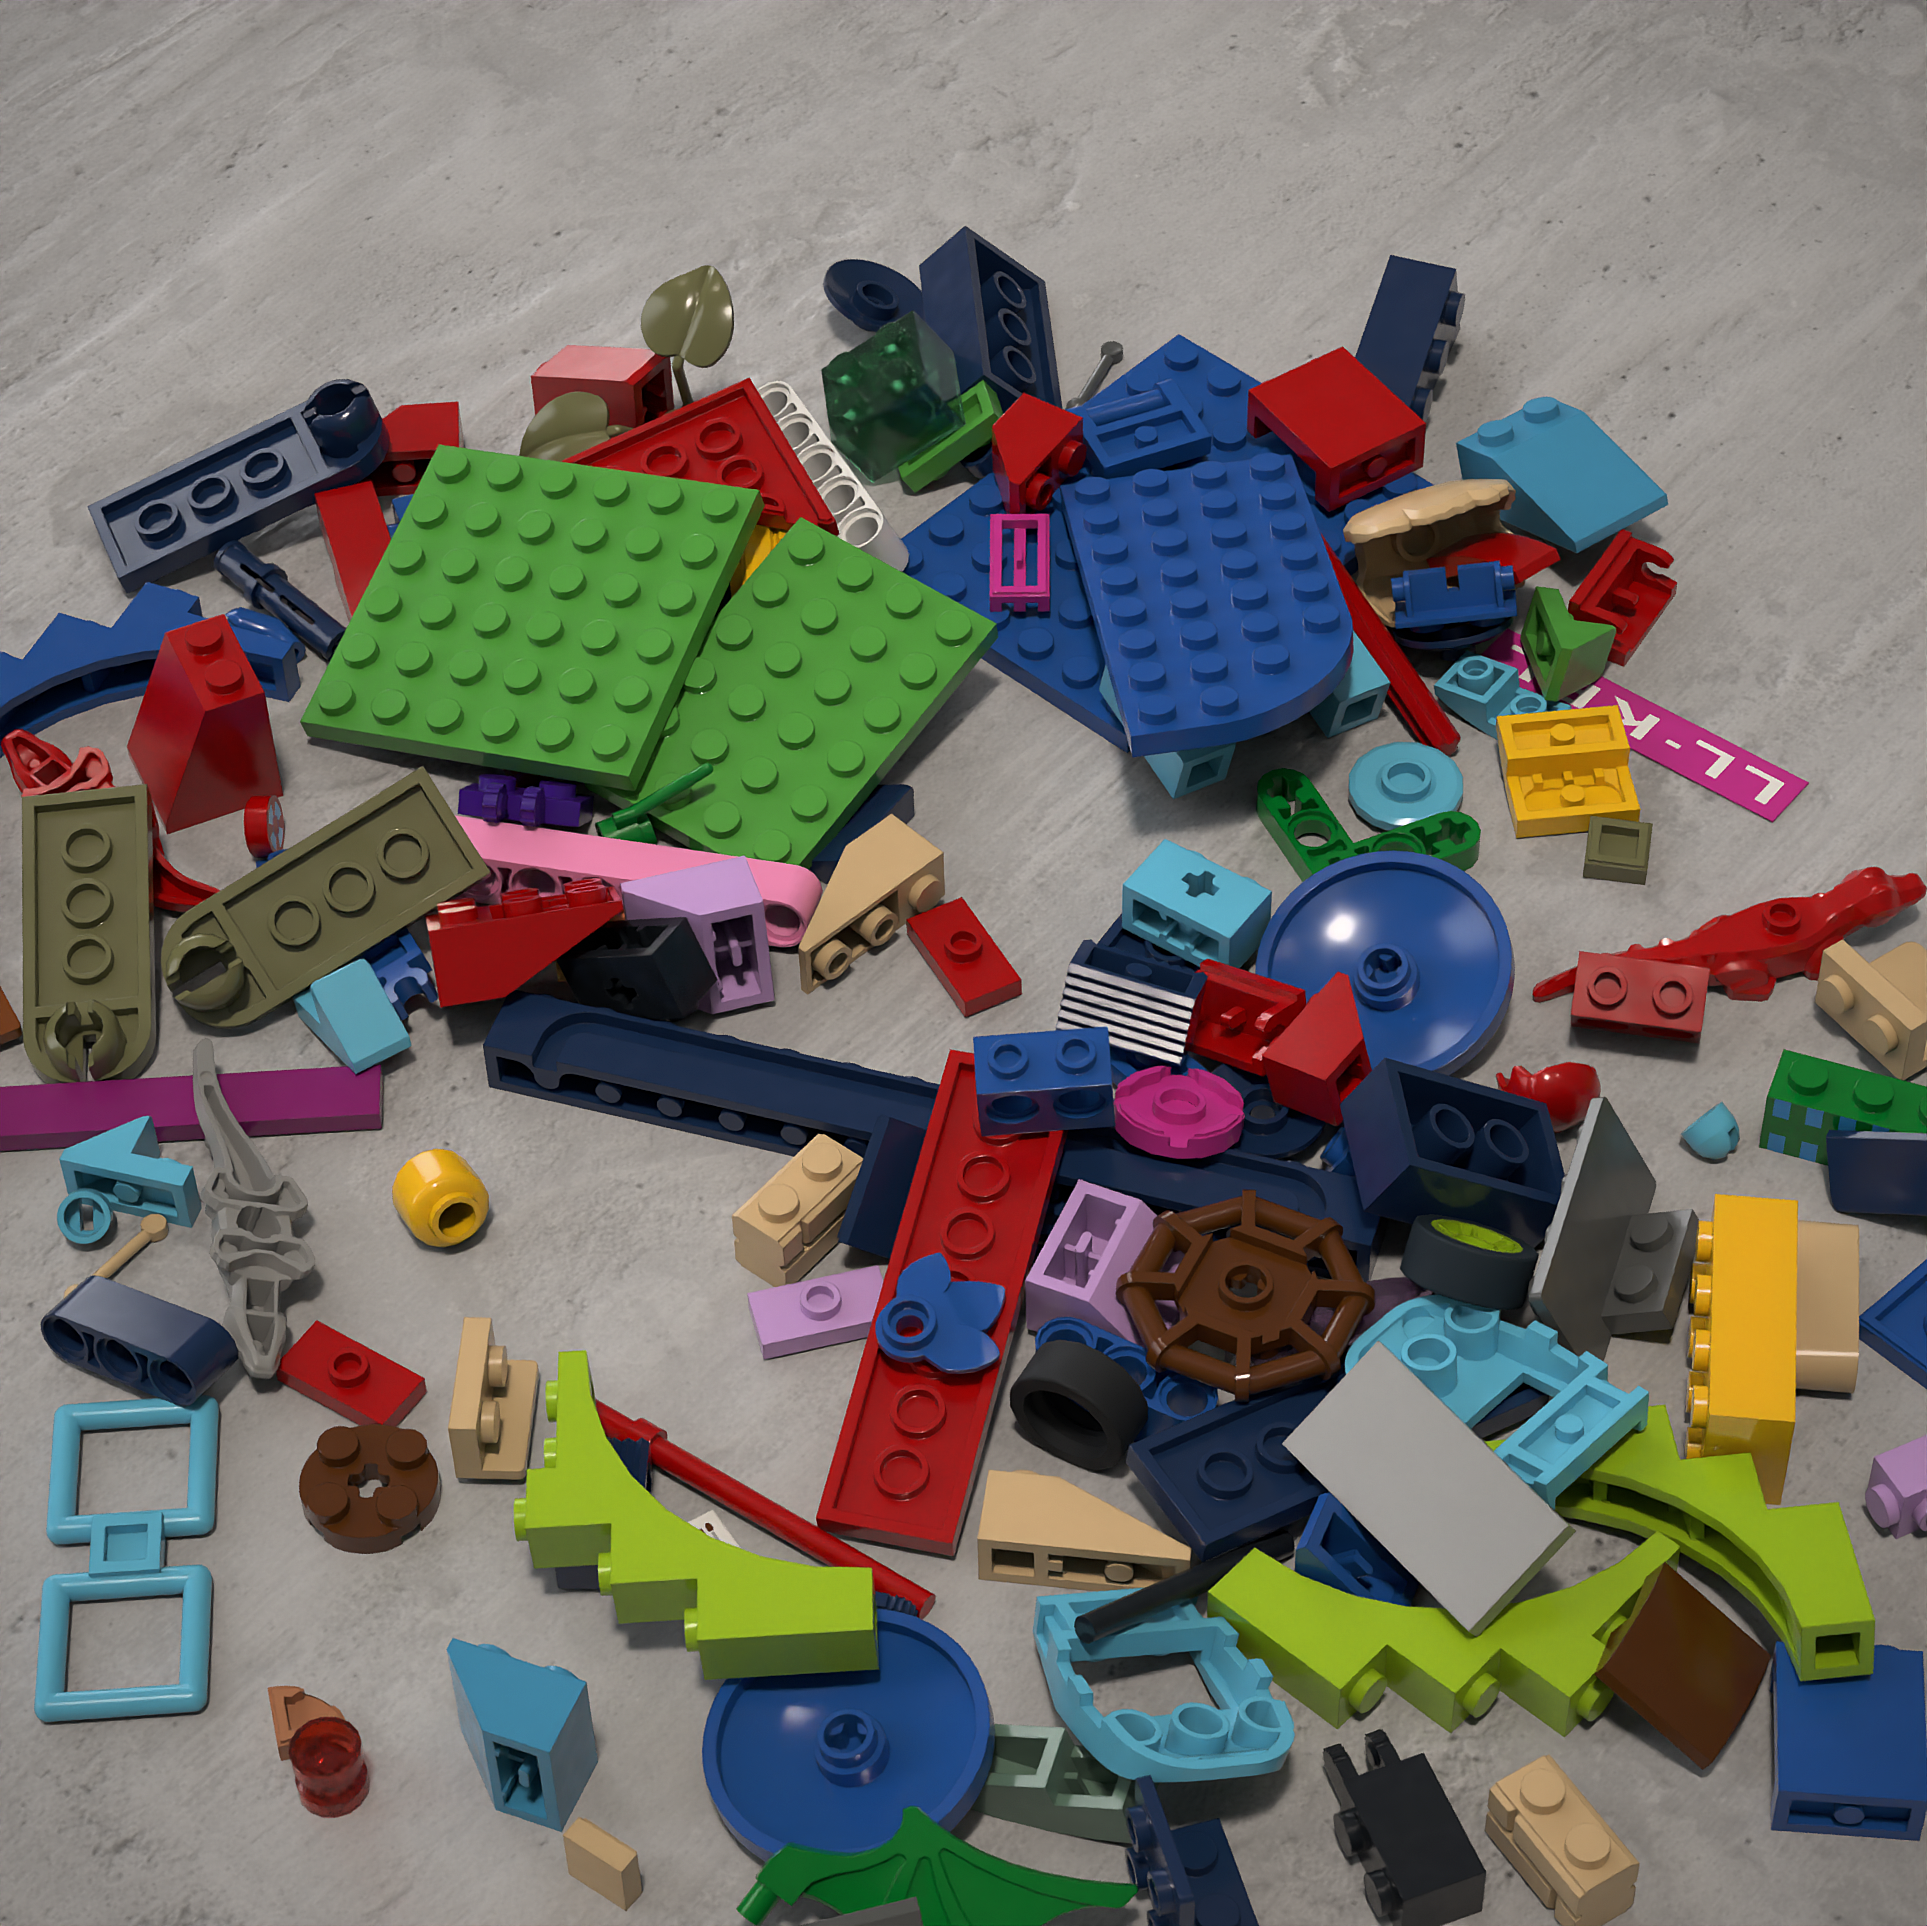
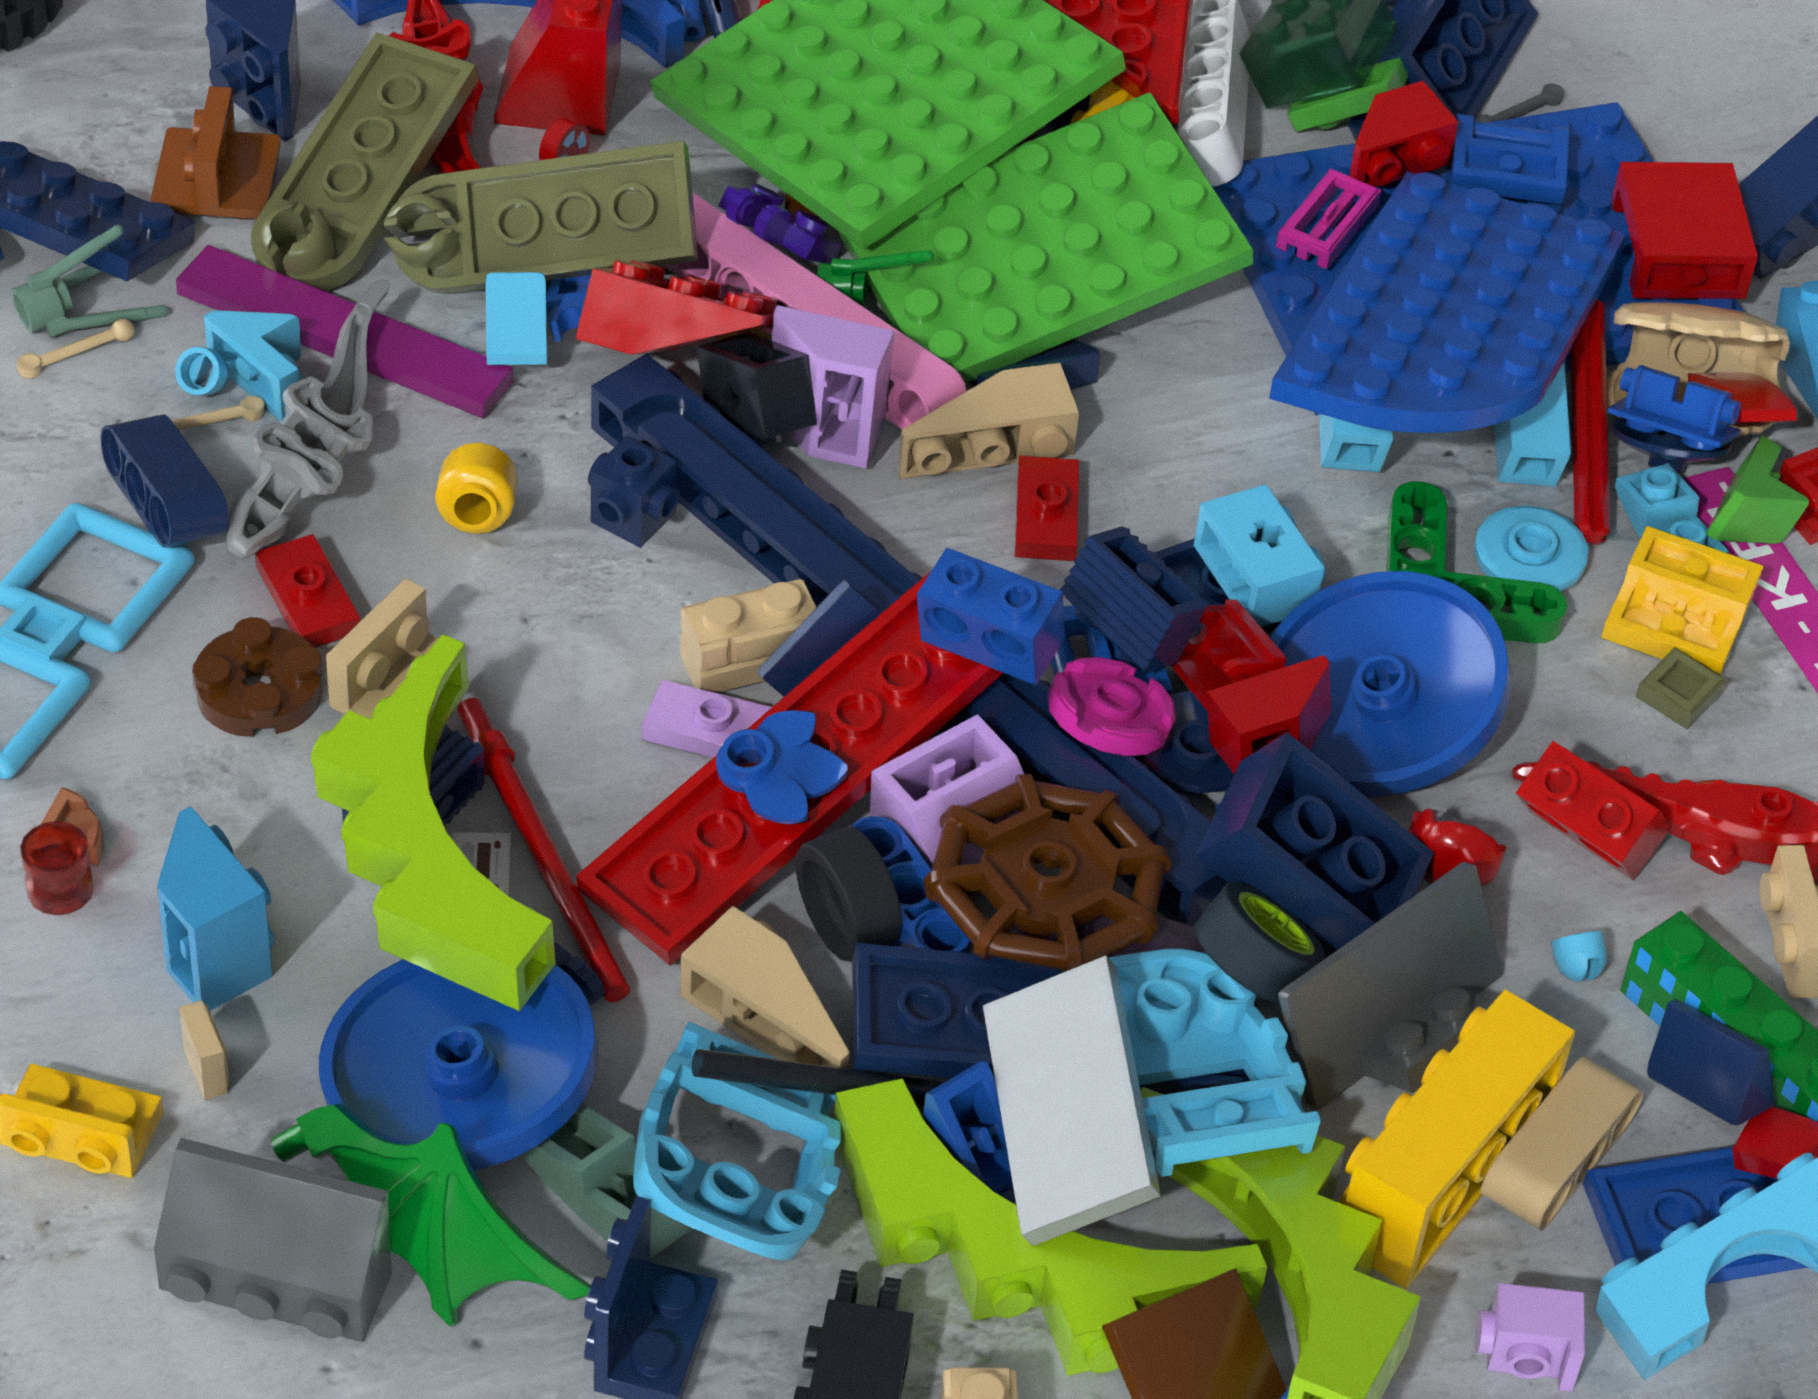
camera: 25 degrees right, 0 degrees up
(589, 1127) = (633, 490): none -> dark blue brick

